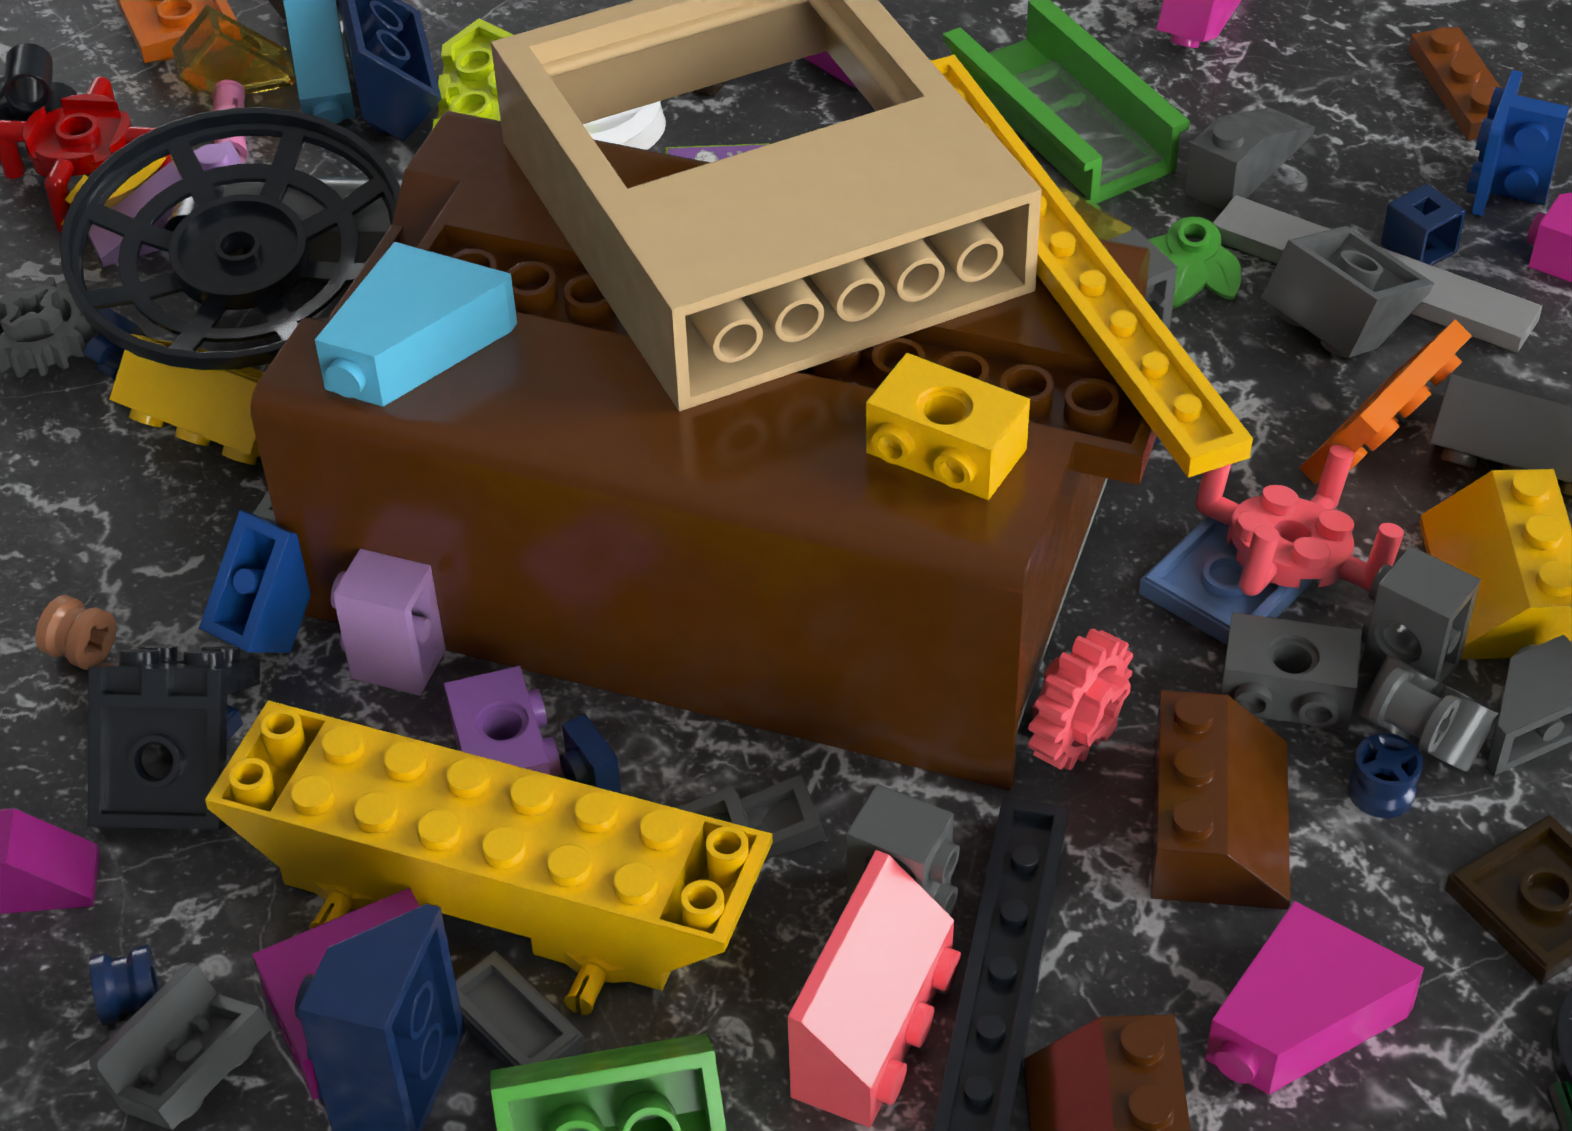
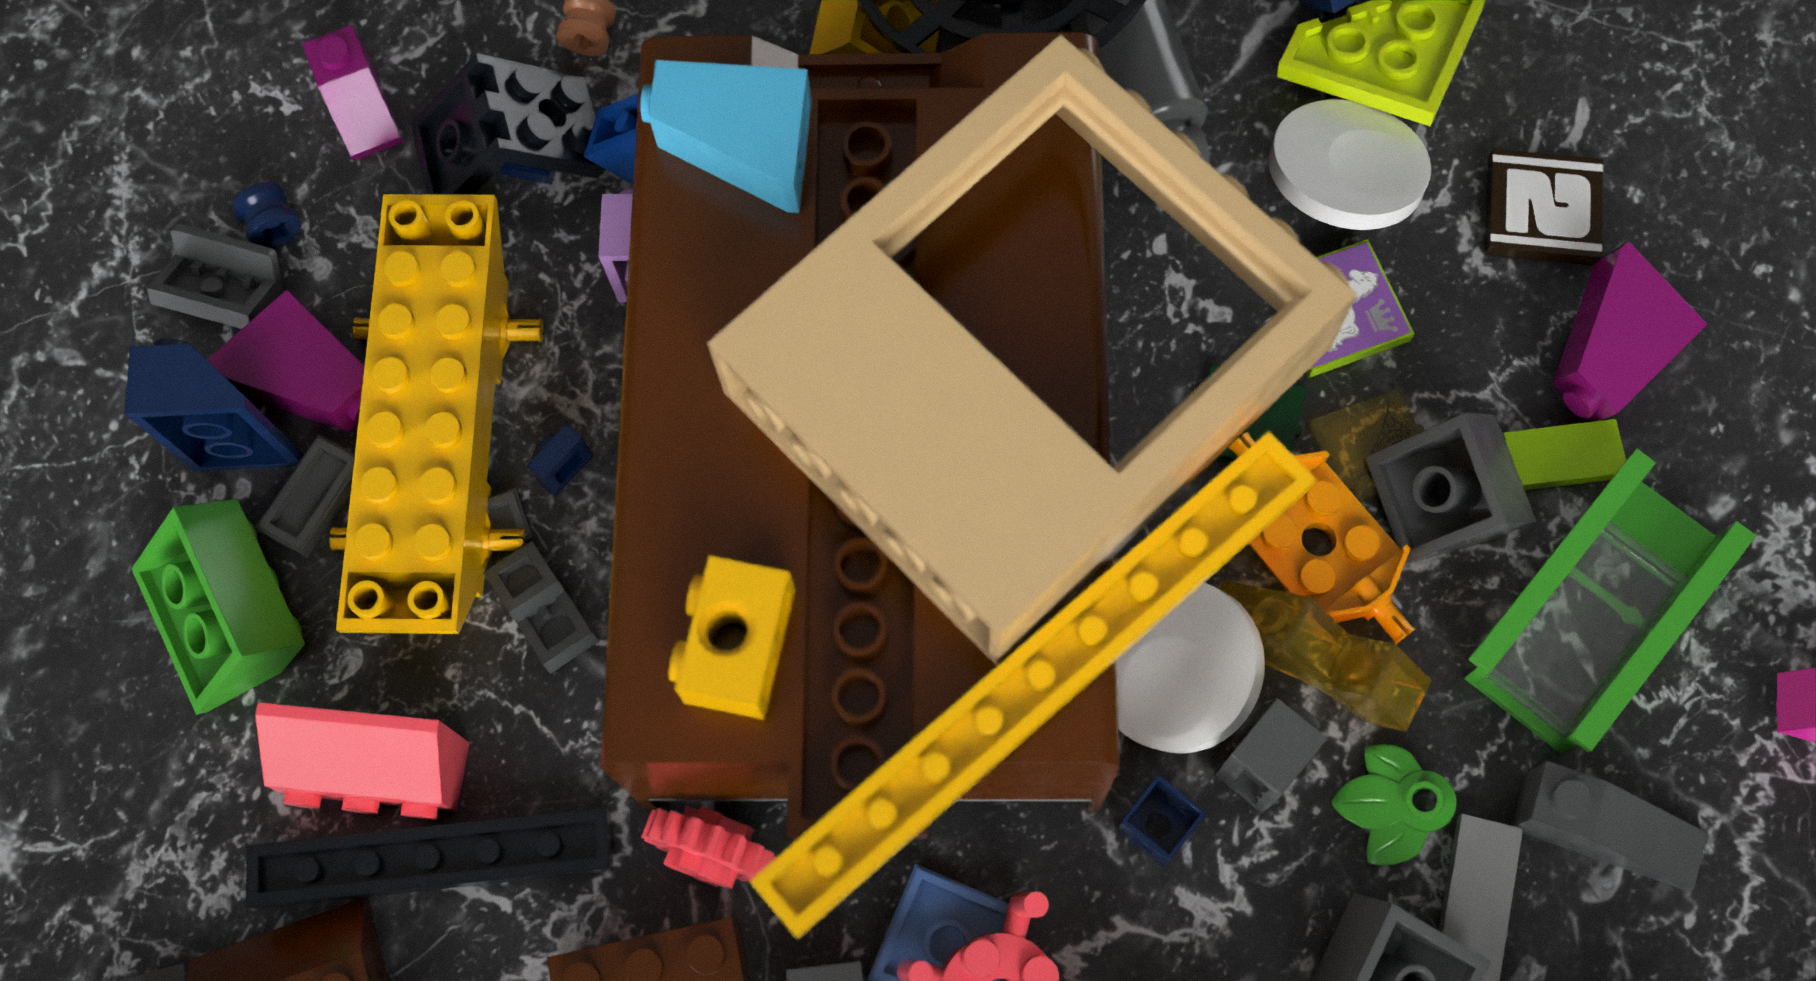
camera: 75 degrees right, 25 degrees up
(501, 720) = (569, 354): medium lavender brick -> none
(912, 834) = (485, 744): dark grey brick -> none

